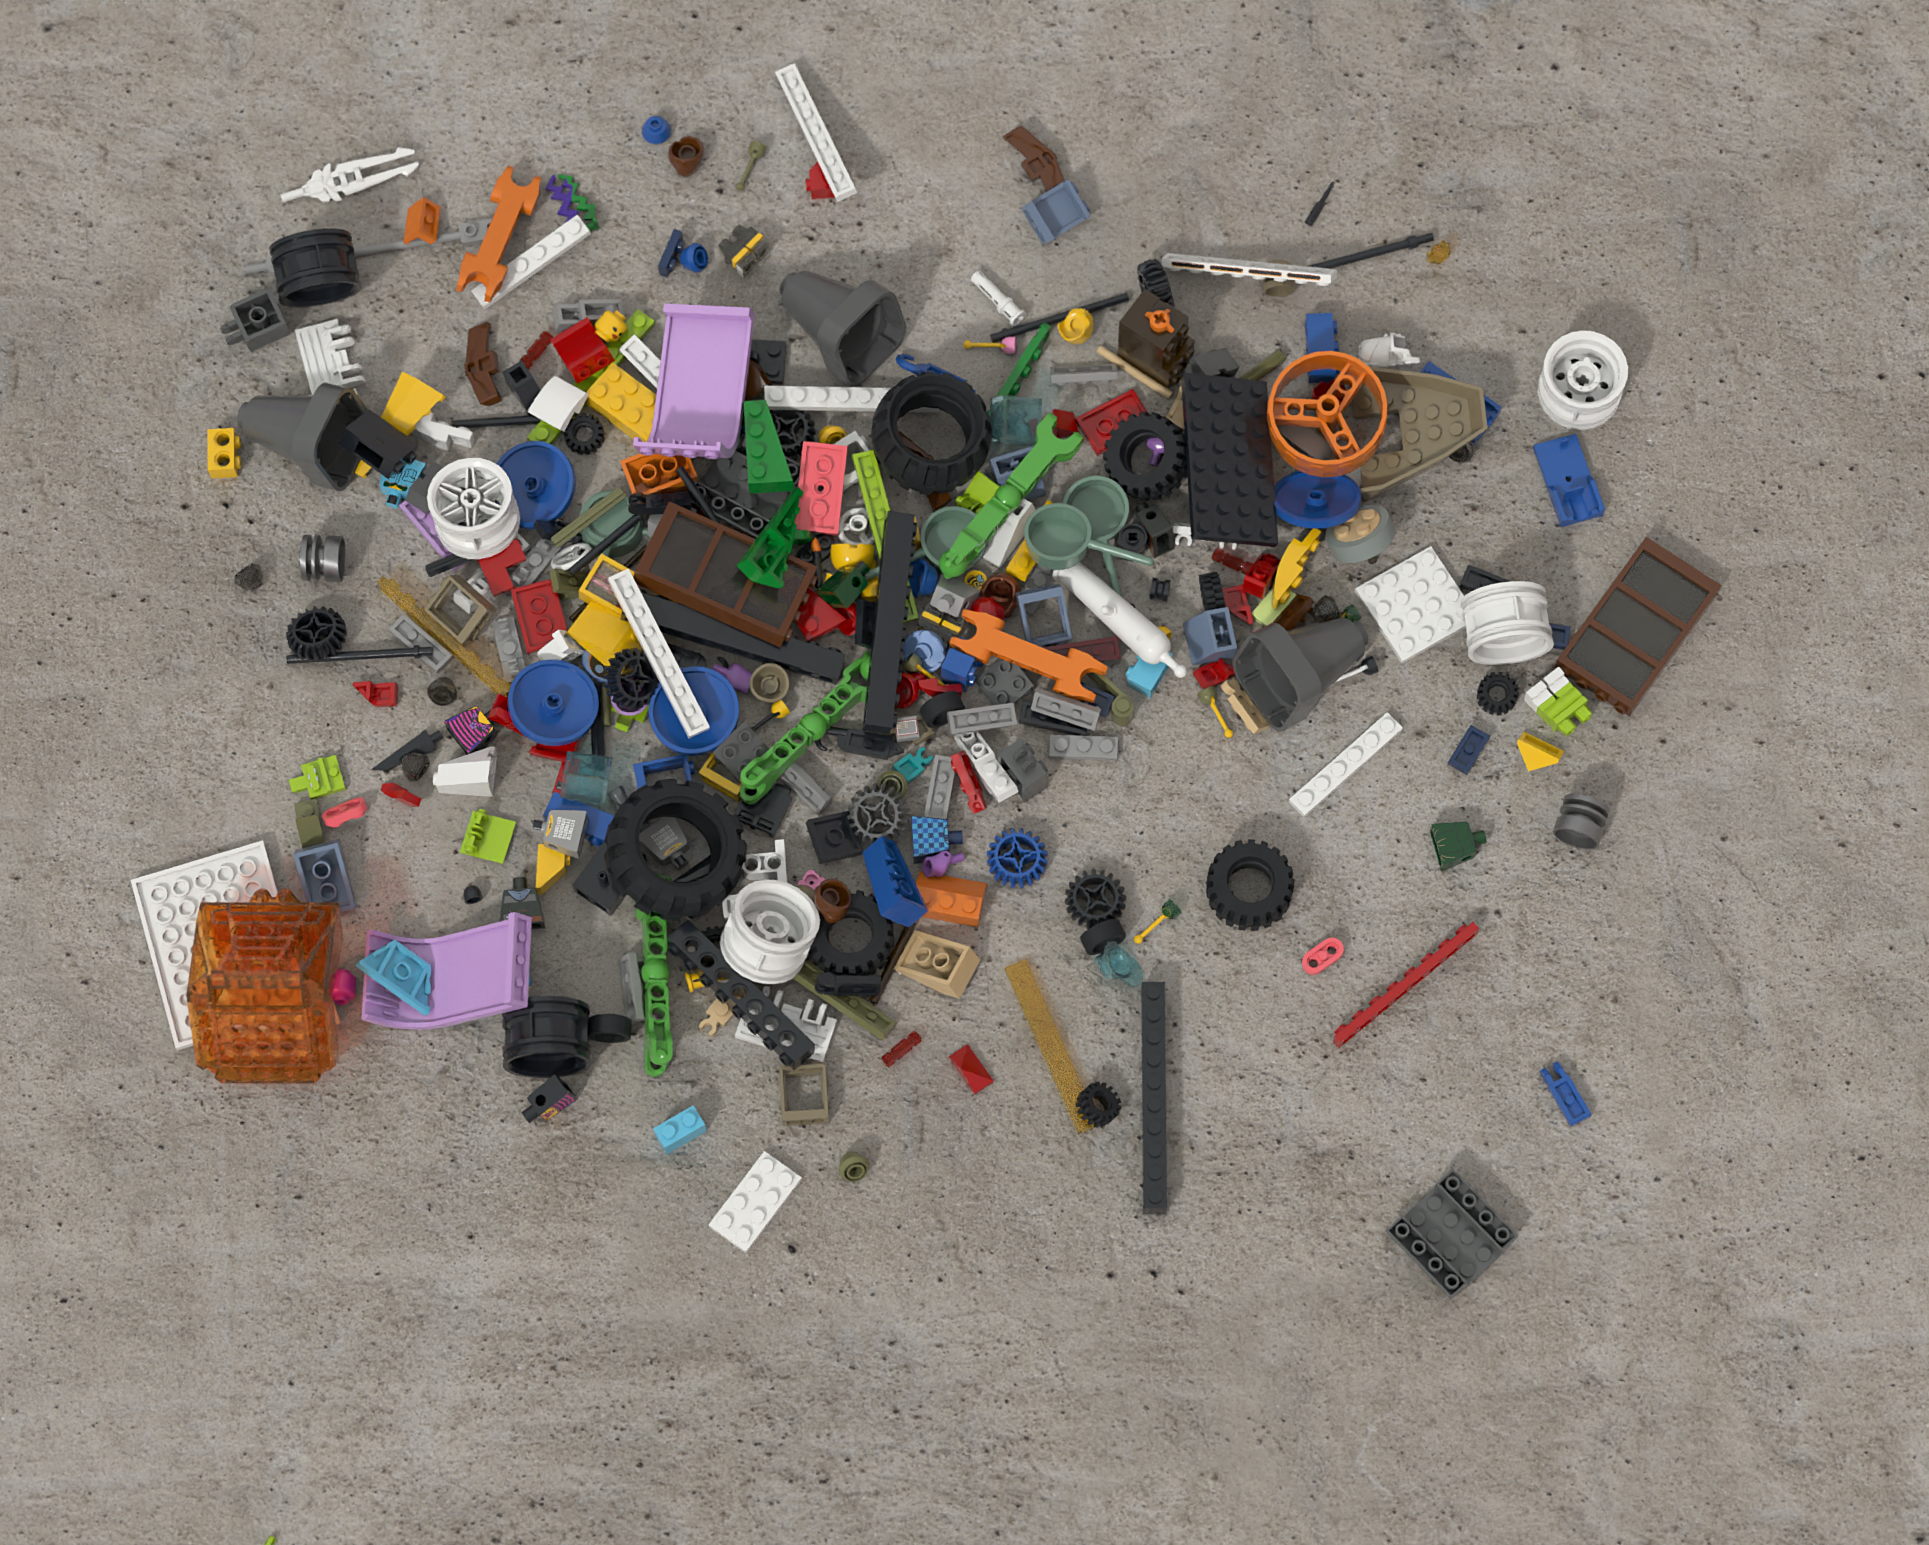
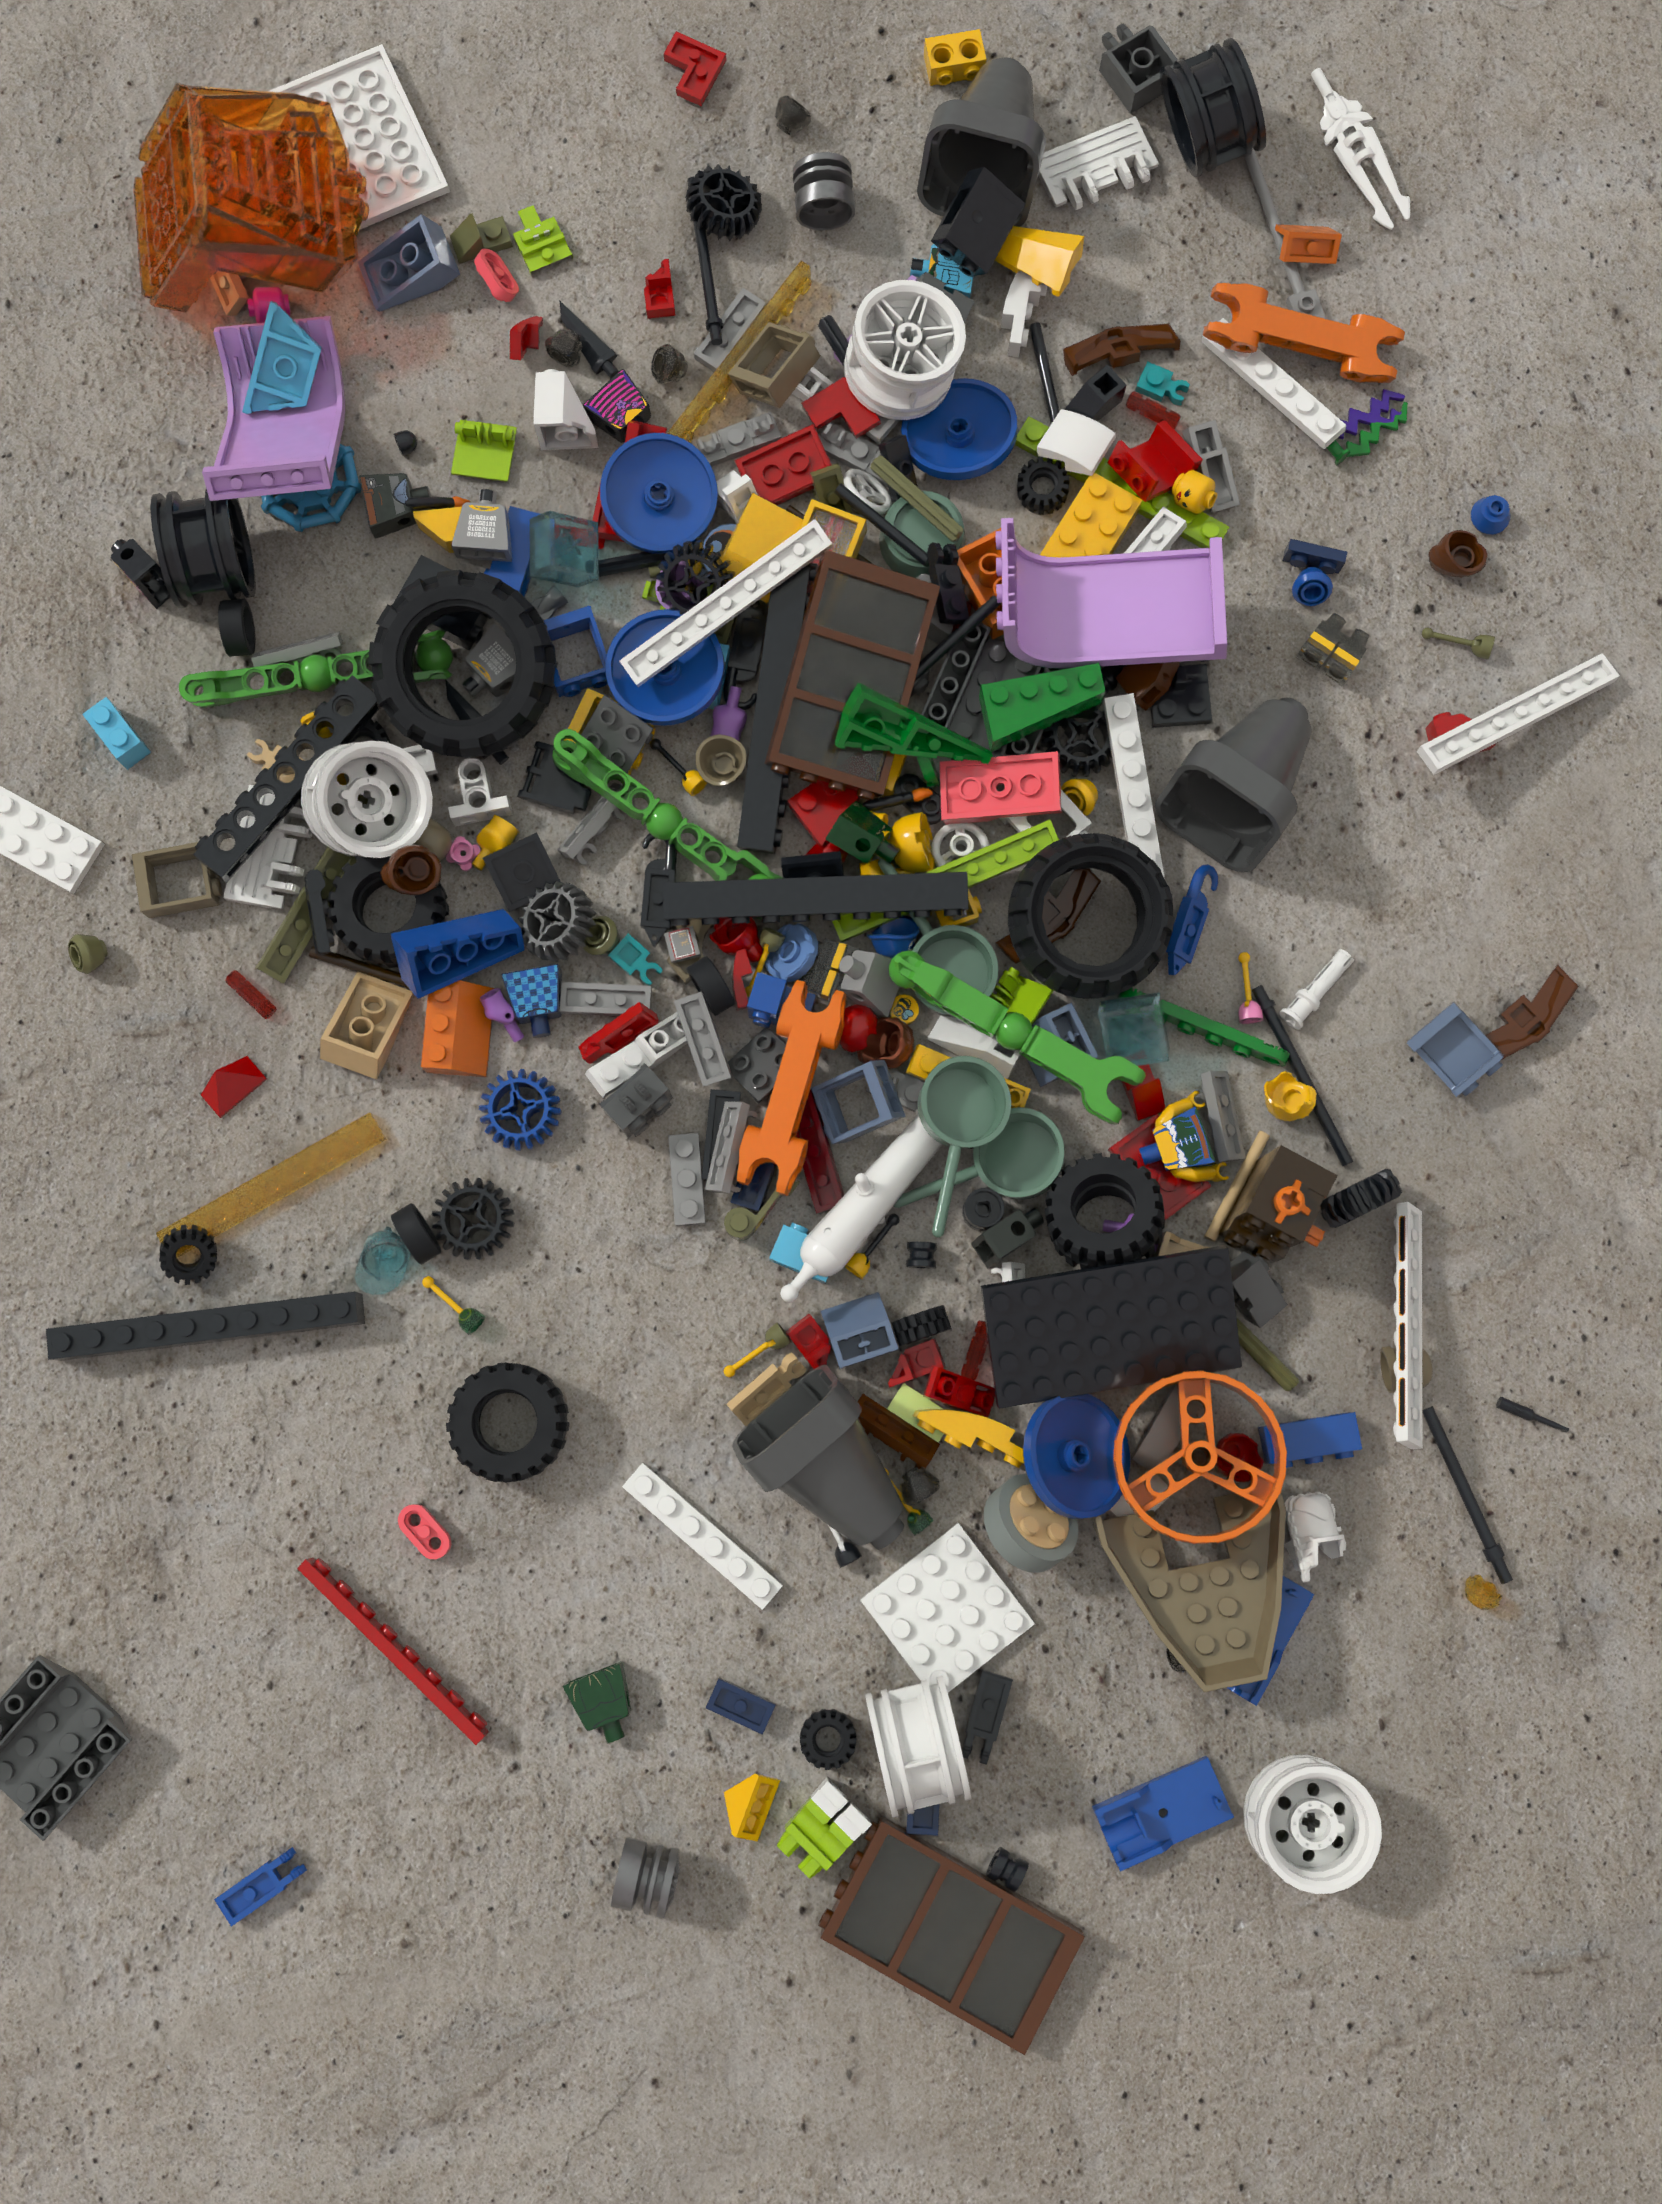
camera: 80 degrees right, 10 degrees up
(190, 641) = (700, 63): none -> red plate
(514, 344) = (1157, 382): none -> teal plate
(529, 872) = (435, 502): none -> black piece
(805, 858) = (493, 837): none -> yellow piece
(1100, 400) = (1183, 1143): none -> torso
(1598, 583) = (1004, 1868): none -> black wheel

